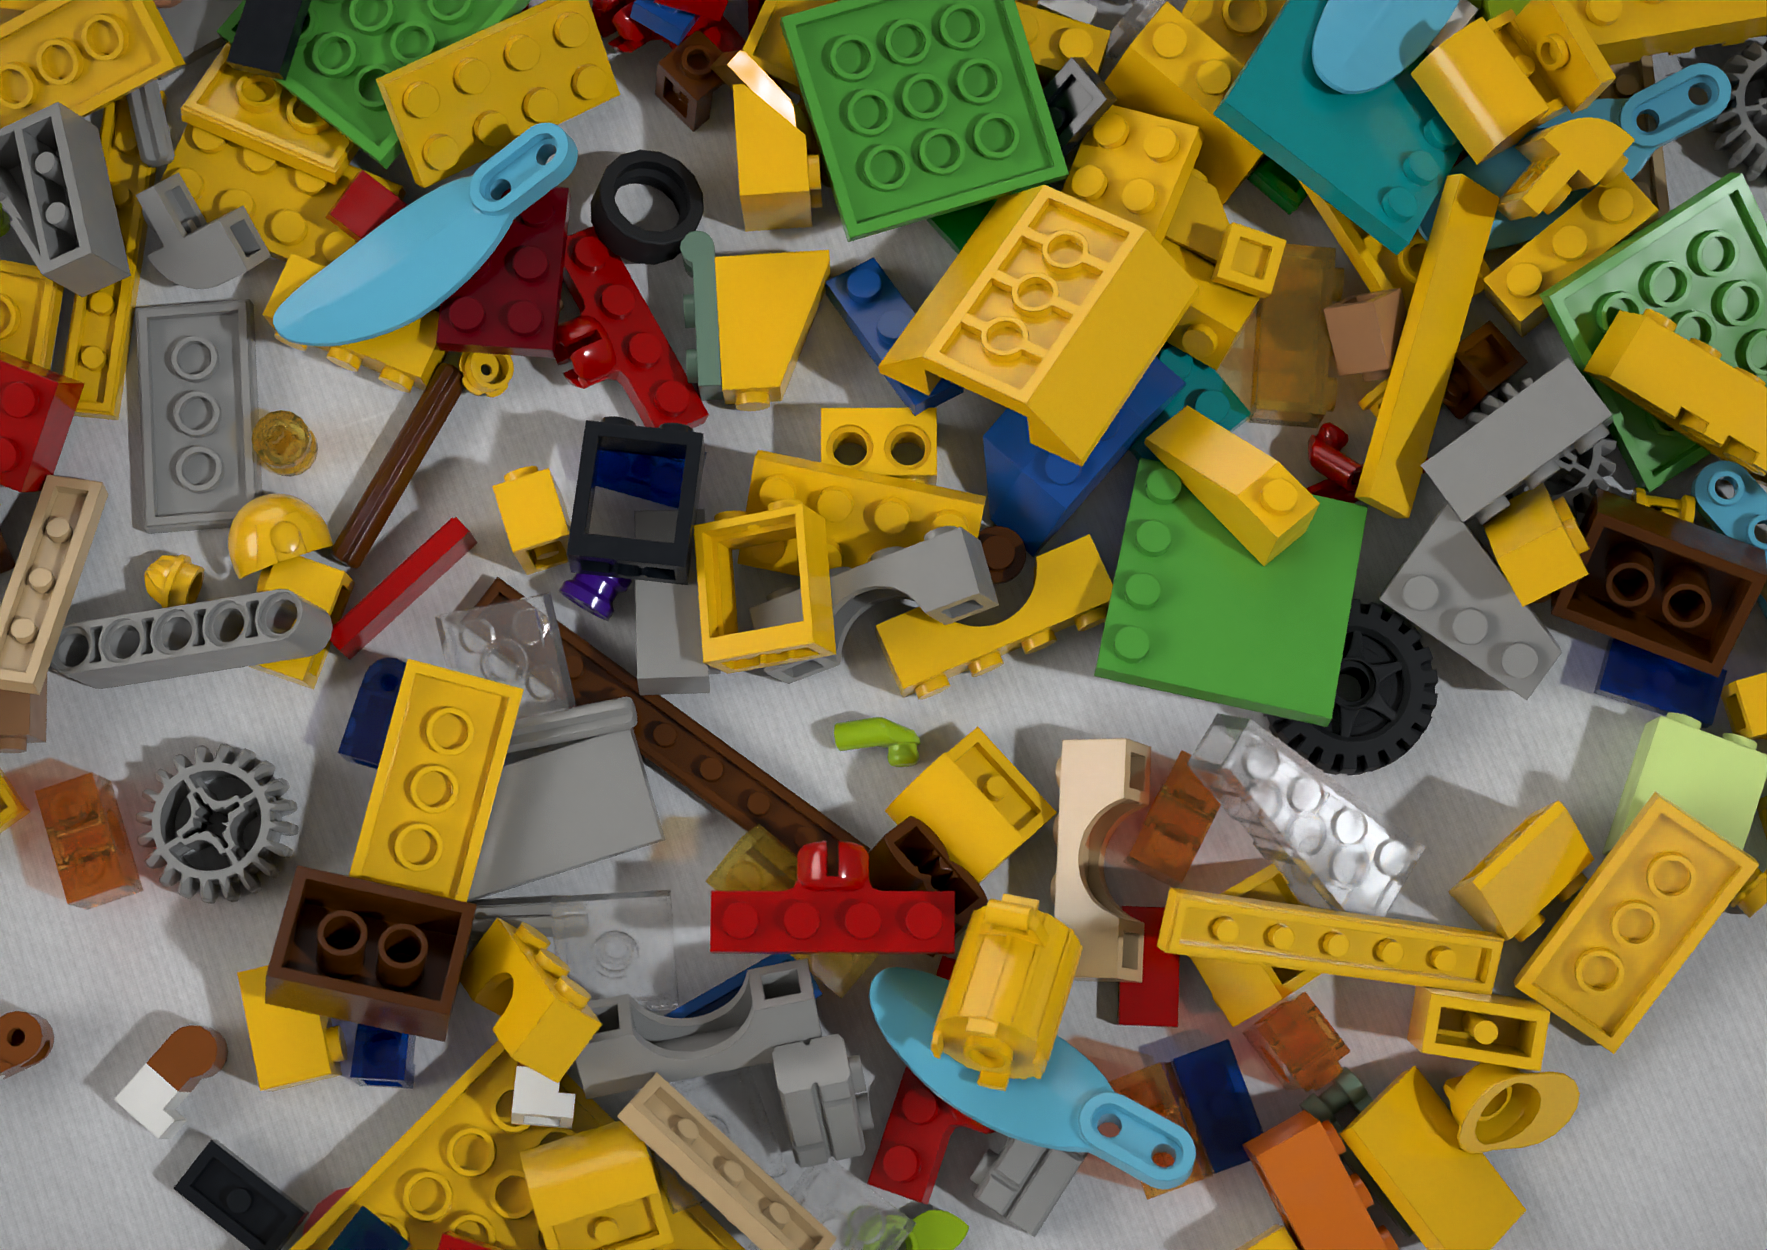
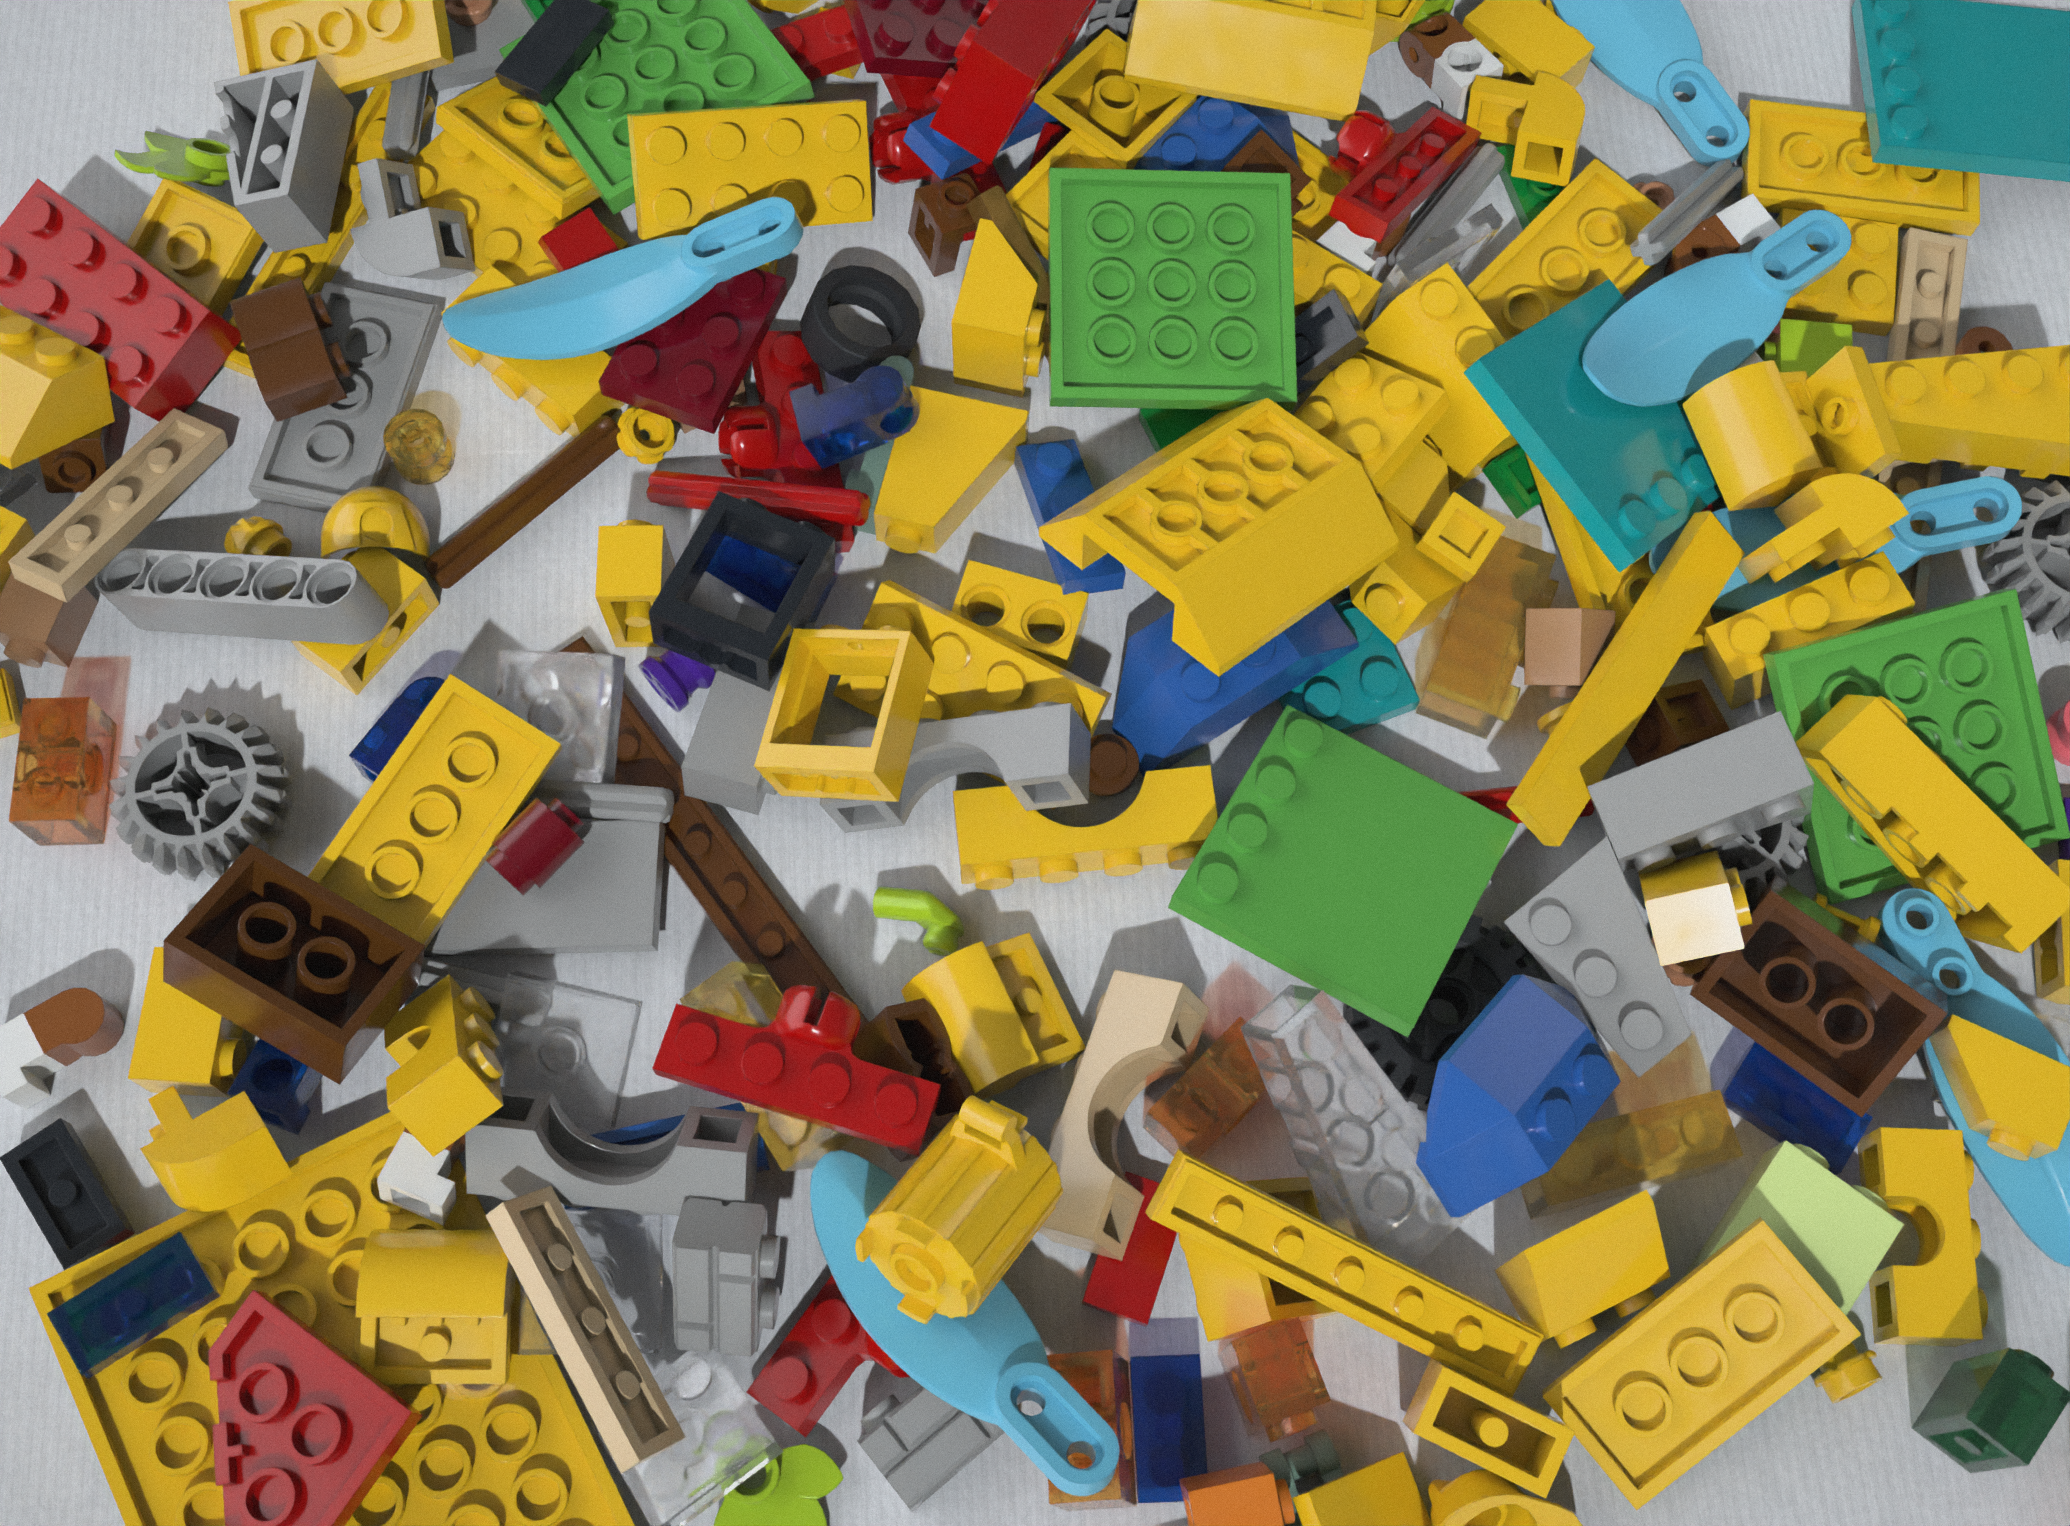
camera: 15 degrees right, 10 degrees down
(136, 389) = (290, 349): none -> reddish brown brick
(362, 1135) = (214, 1157): none -> yellow brick
(402, 587) = (479, 617): red tile -> none
(533, 784) = (536, 844): none -> dark red brick
(628, 403) = (783, 499): none -> red axle
(678, 307) = (854, 415): none -> clear blue leg
(1235, 482) = (1383, 755): yellow slope -> none
(1328, 460) = (1490, 768): red arm -> none
(1430, 750) = (1512, 1094): none -> blue wedge
(1531, 765) = (1637, 1154): none -> clear yellow brick

